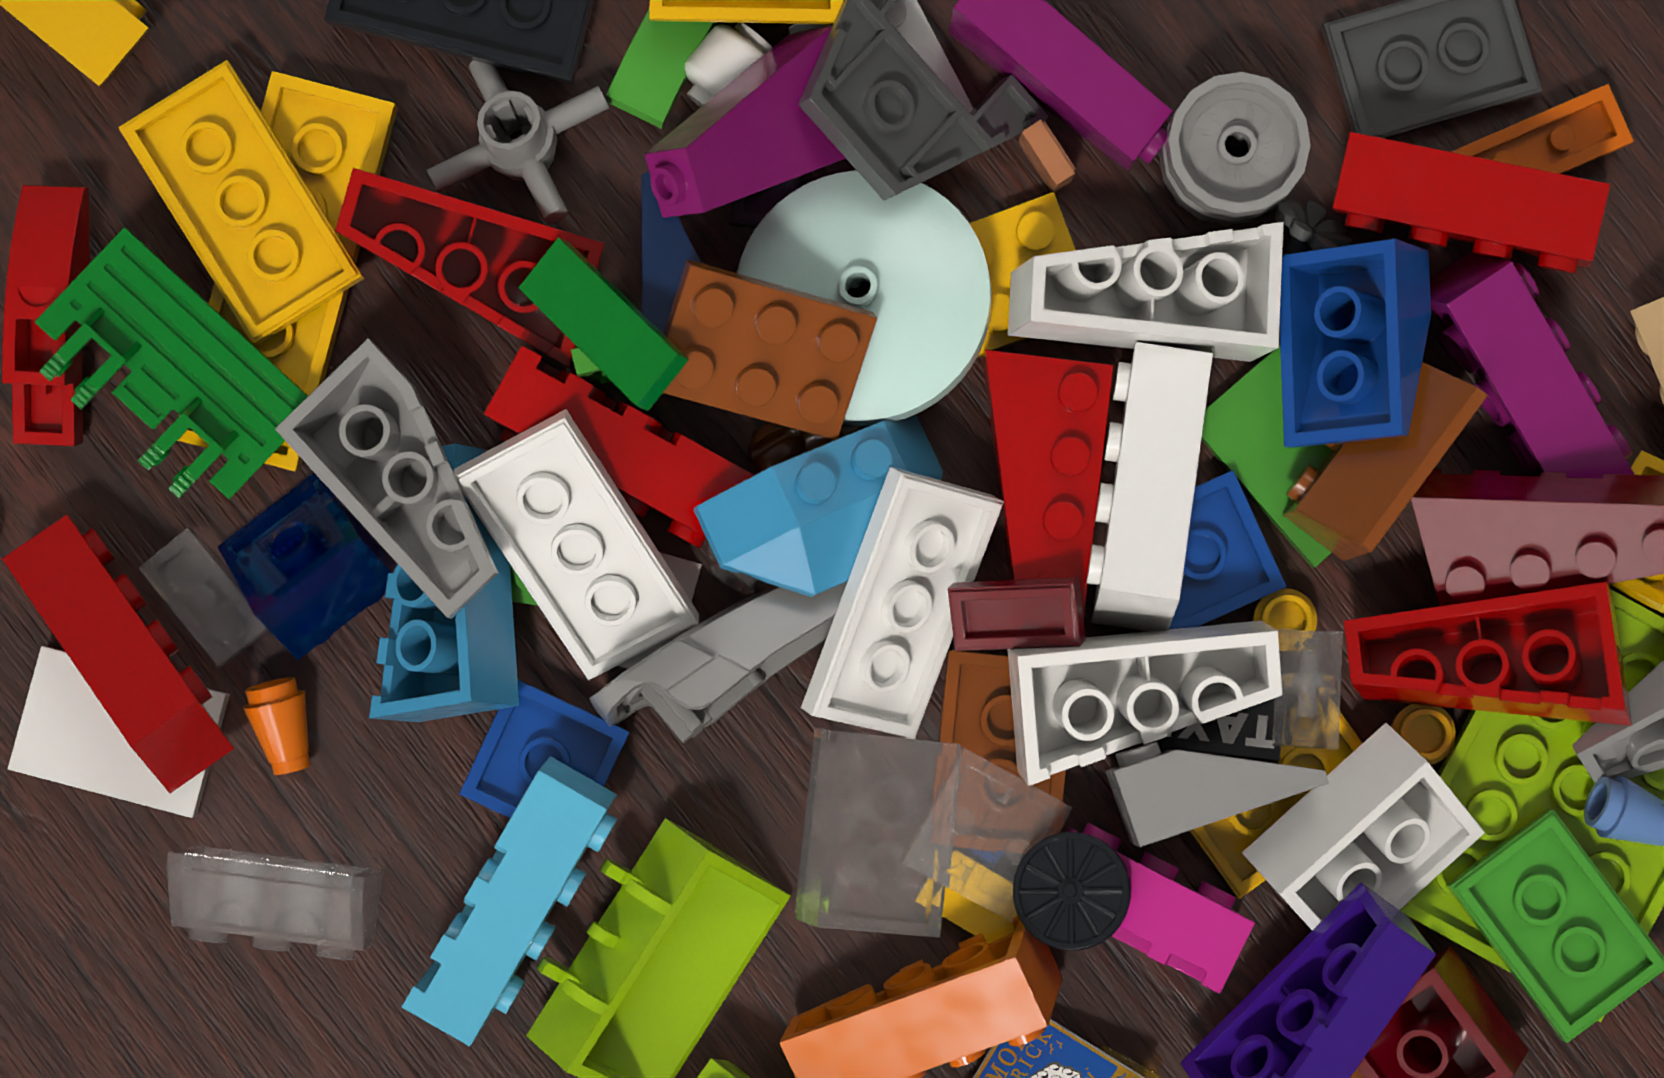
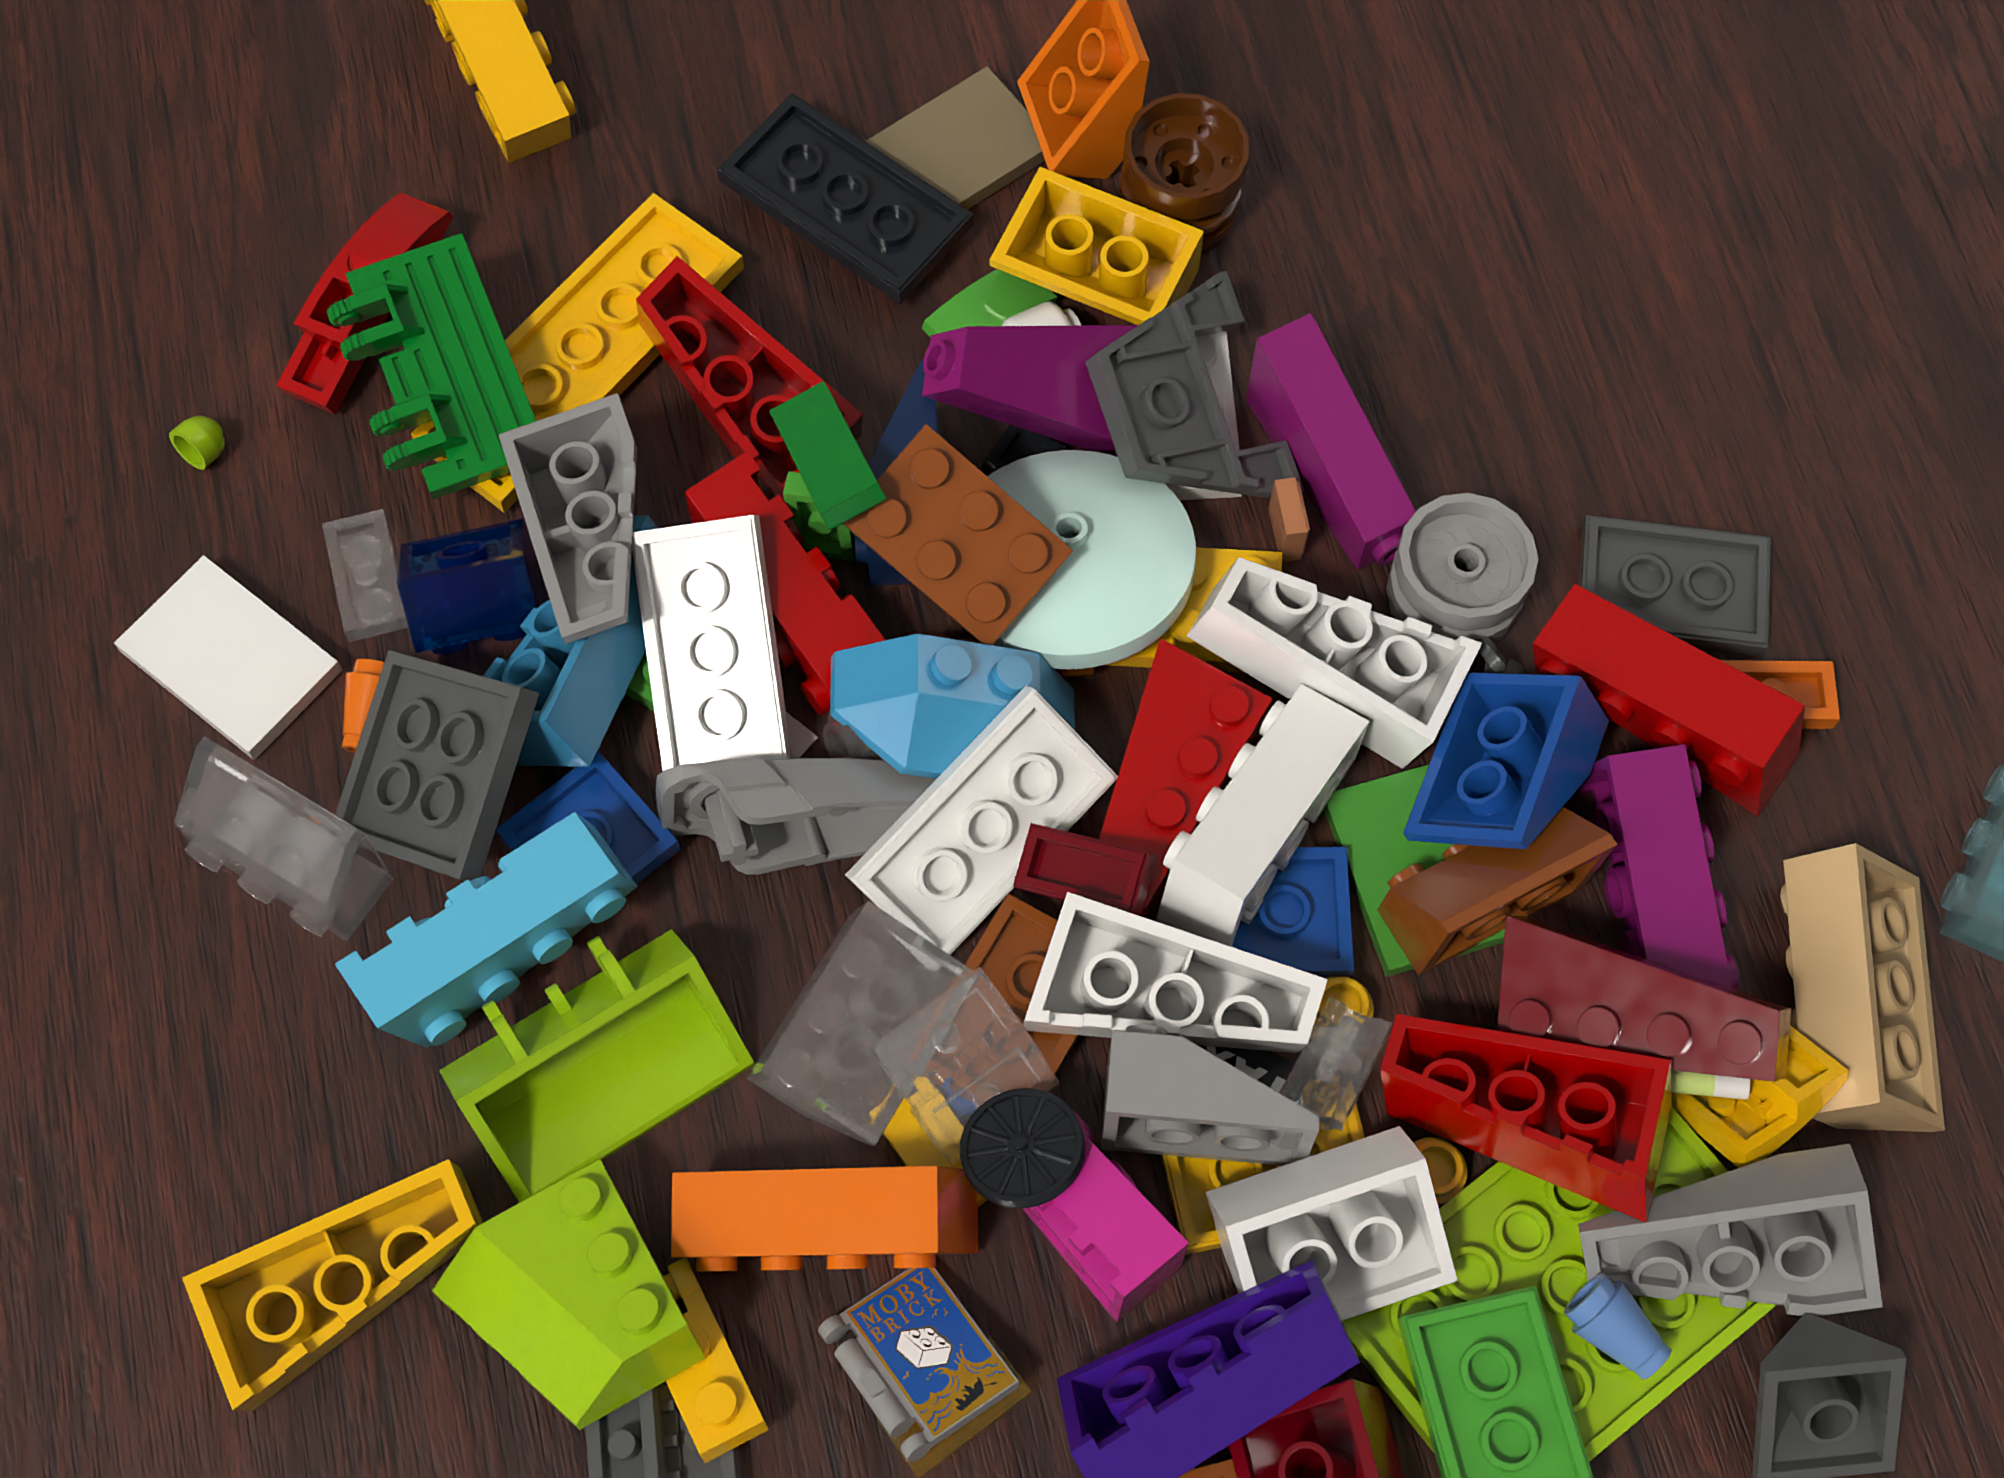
camera: 20 degrees right, 20 degrees down
(118, 653) = (265, 580): red wedge -> none
(241, 203) = (572, 277): yellow tile -> none
(381, 772) = (435, 764): none -> dark grey plate
(523, 157) = (835, 320): light grey bar -> none

